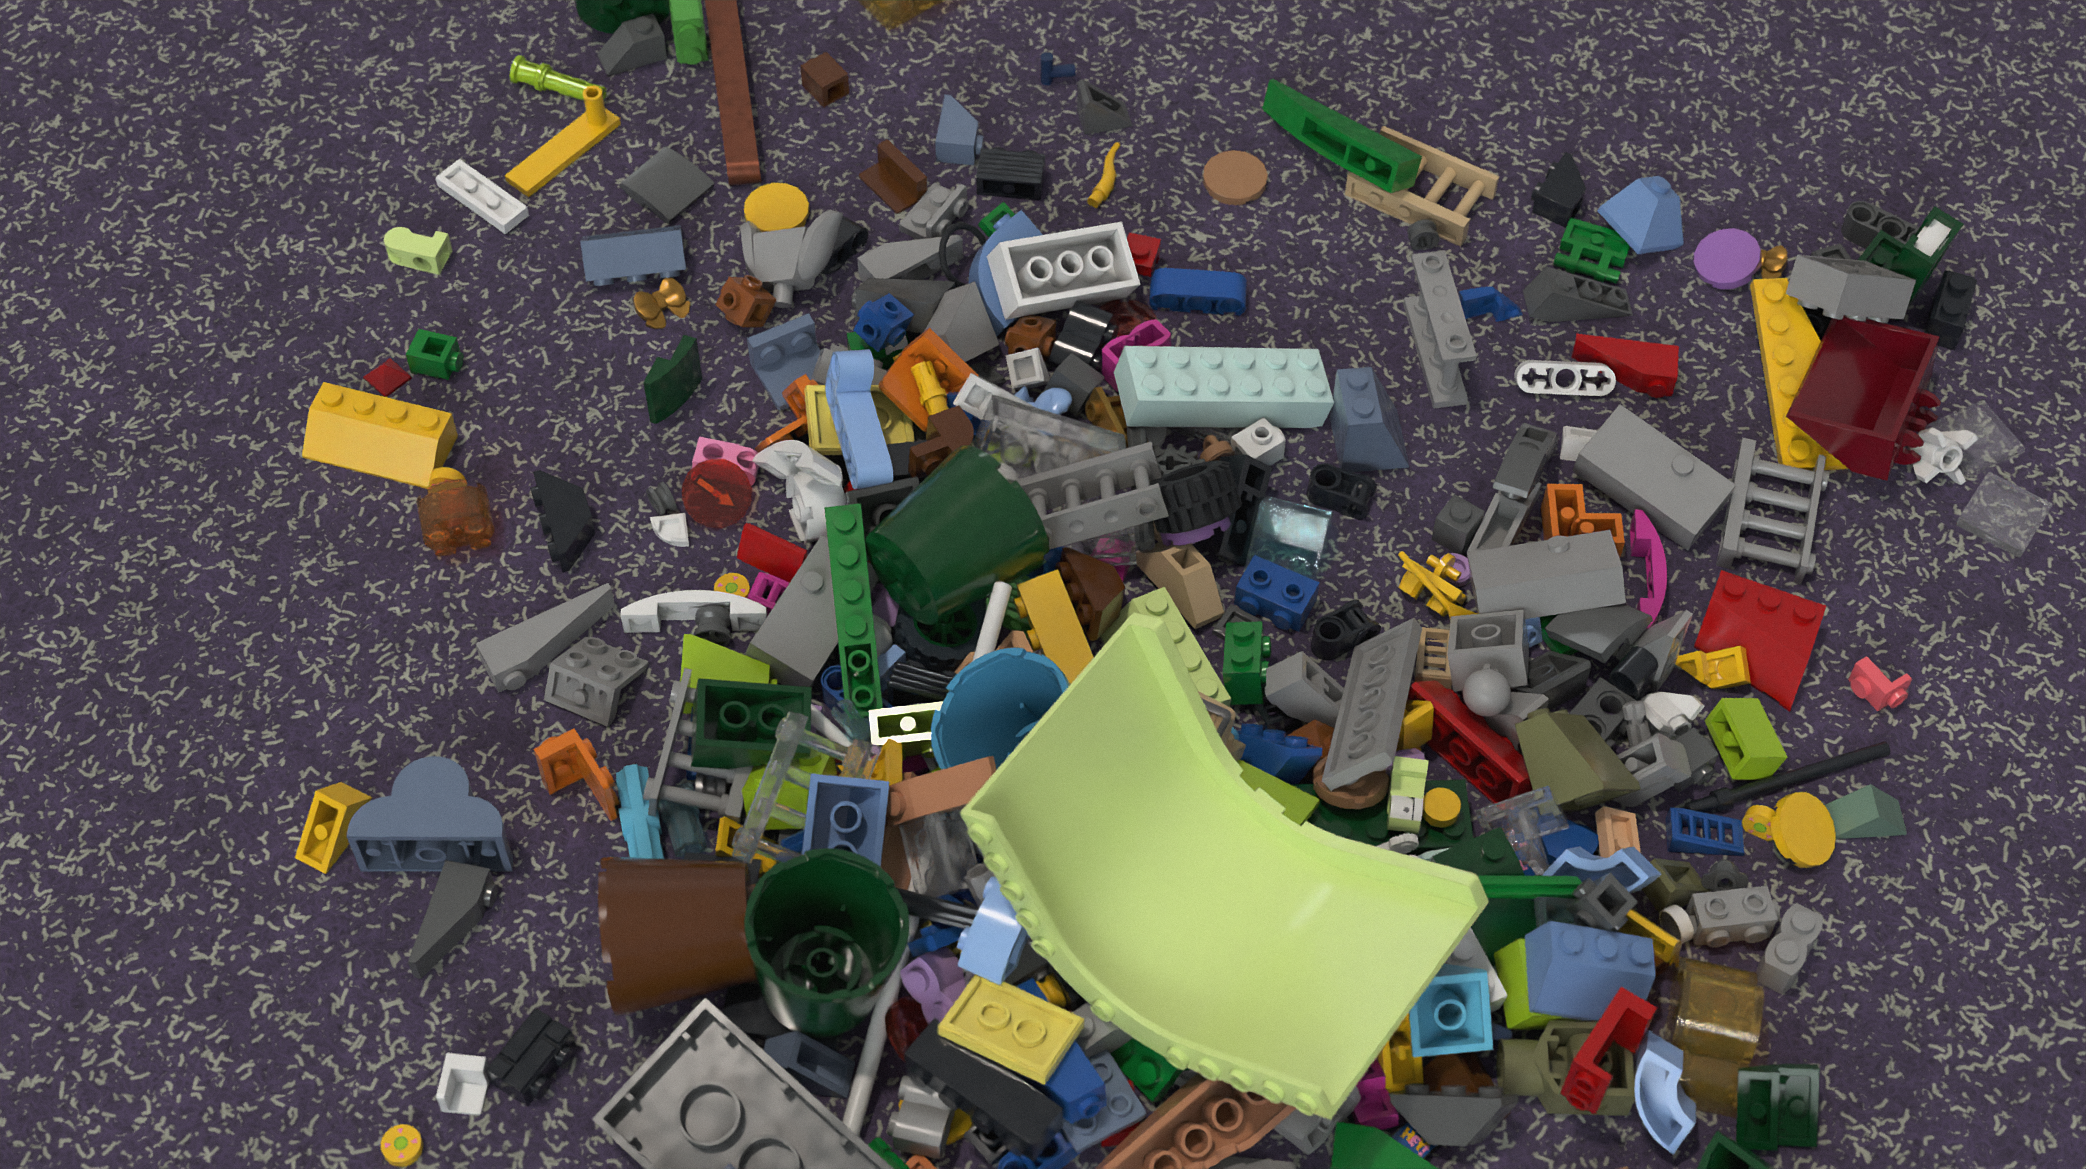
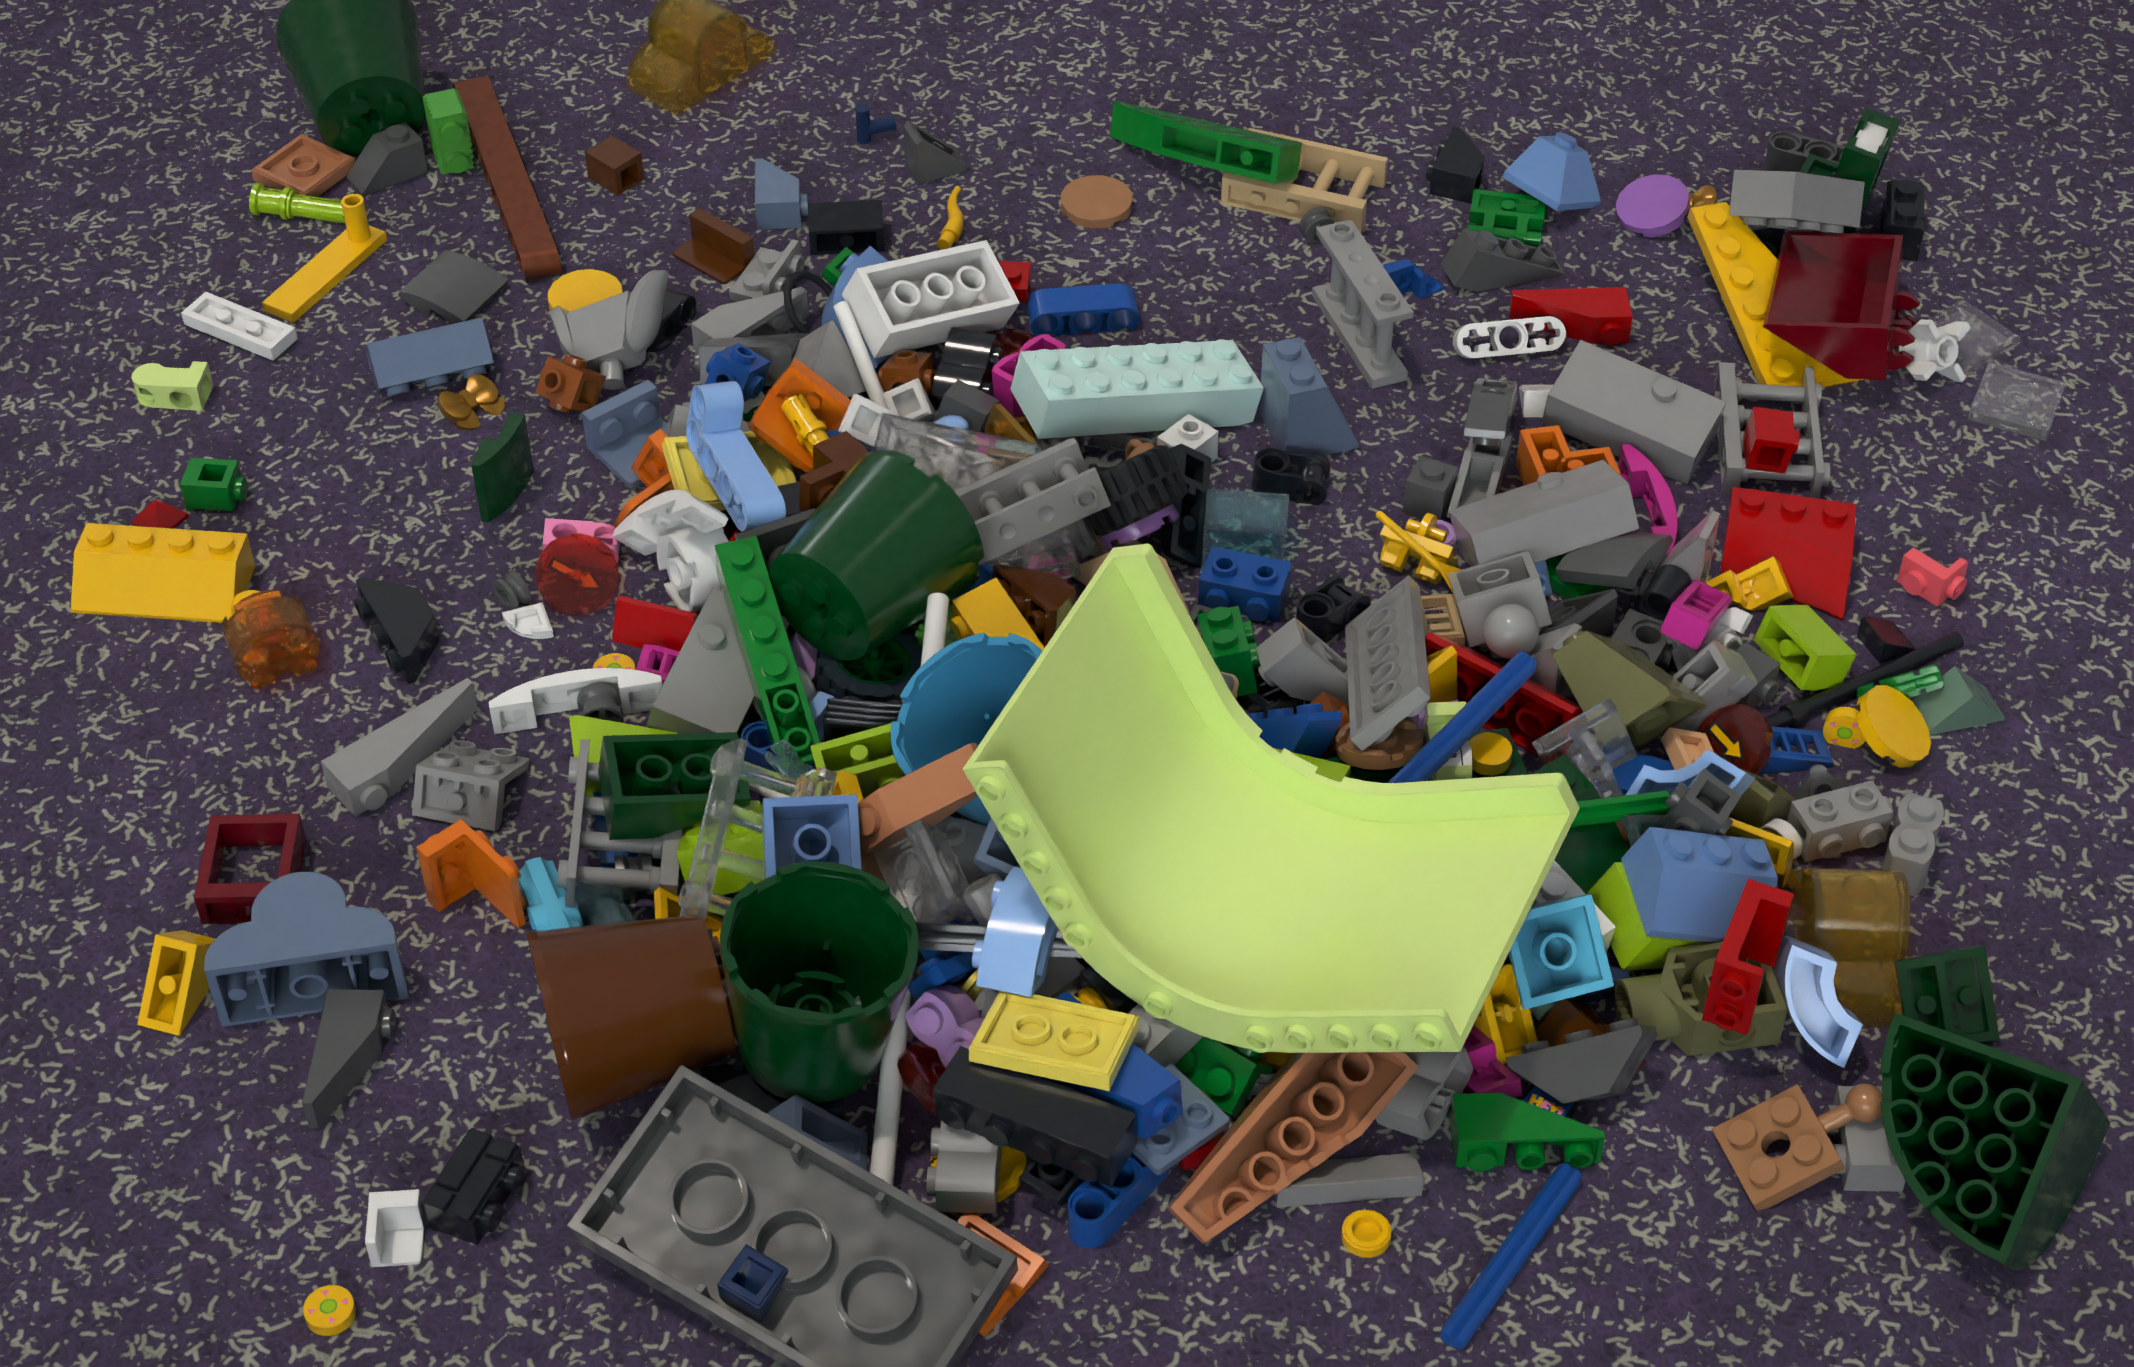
camera: 10 degrees left, 10 degrees down
(391, 761) = (227, 901): none -> dark red window
(562, 41) = (305, 166): none -> nougat plate
(995, 326) = (859, 353): none -> white bar
(1420, 785) = (1468, 720): none -> blue axle
(1651, 701) = (1695, 614): none -> dark pink slope
(1661, 823) = (1739, 736): none -> clear red tile
(1766, 528) = (1770, 440): none -> red brick
(1821, 738) = (1883, 639): none -> black slope
(1825, 790) = (1911, 683): none -> green axle

